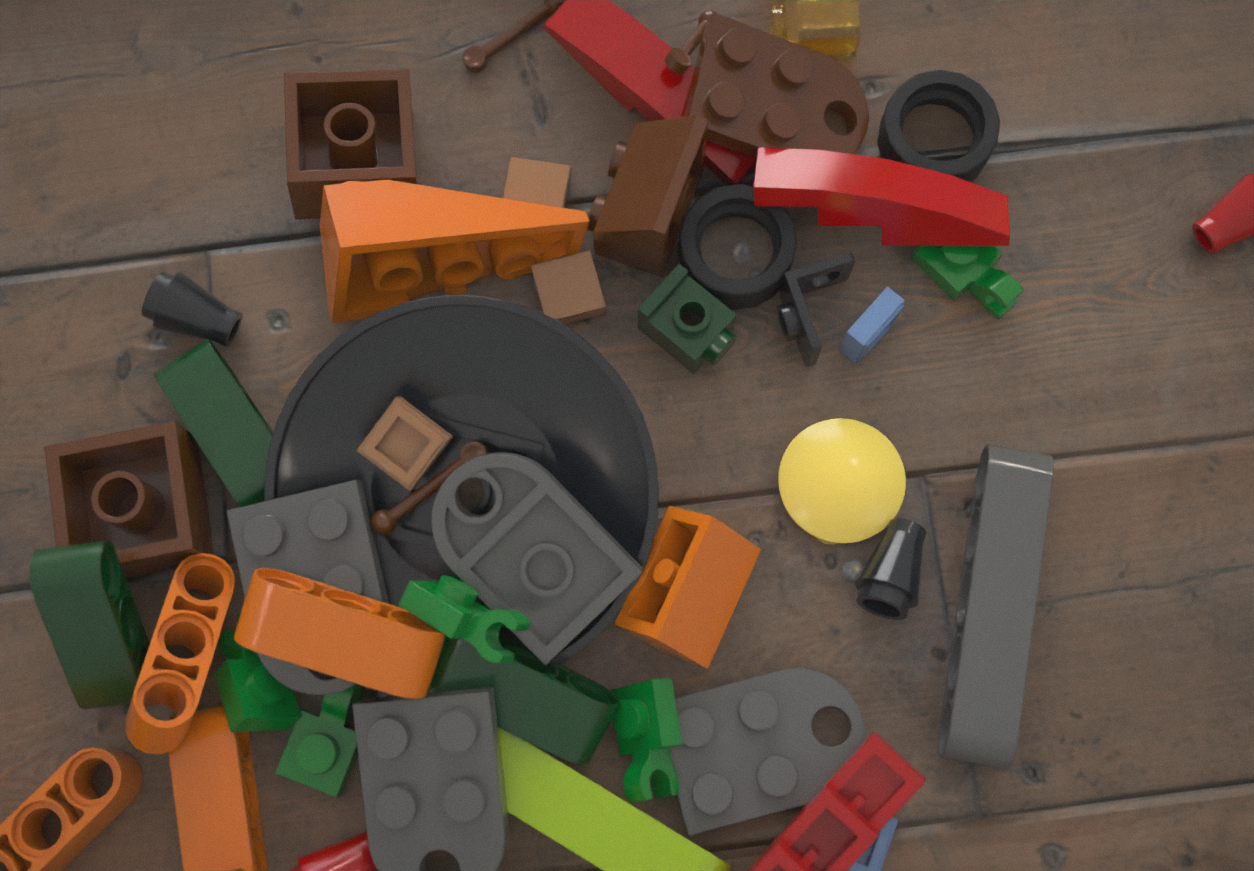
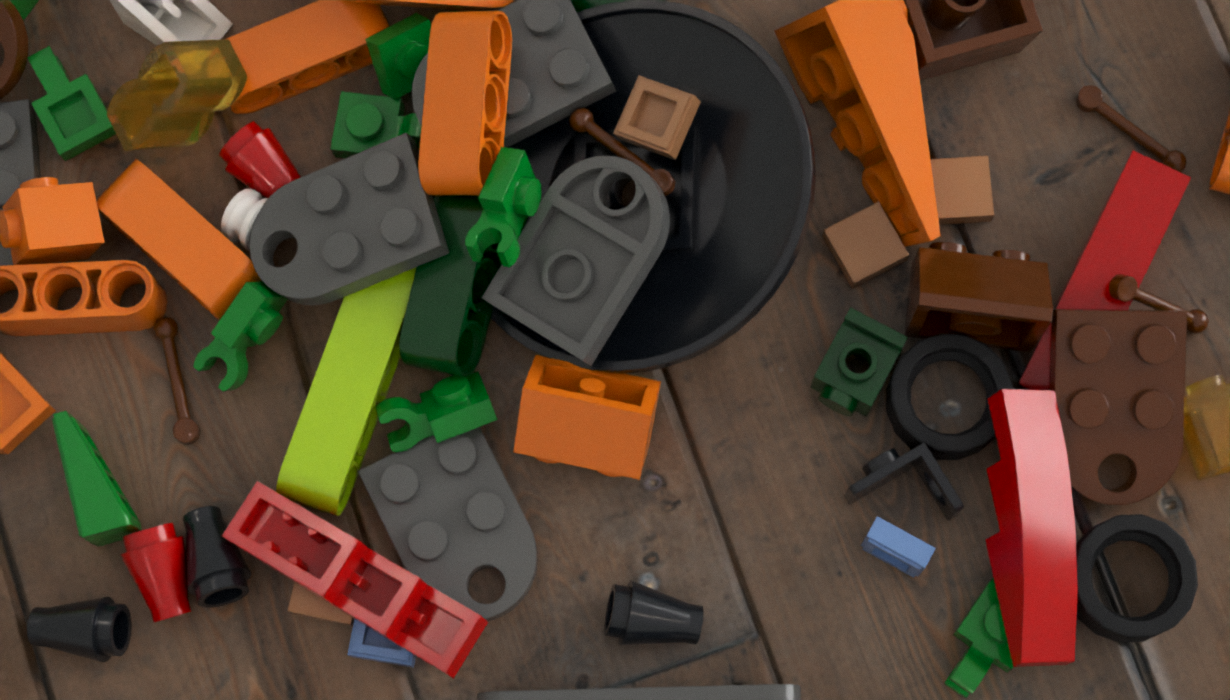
camera: 80 degrees right, 0 degrees up
(841, 481) = (732, 551): light yellow dish -> none

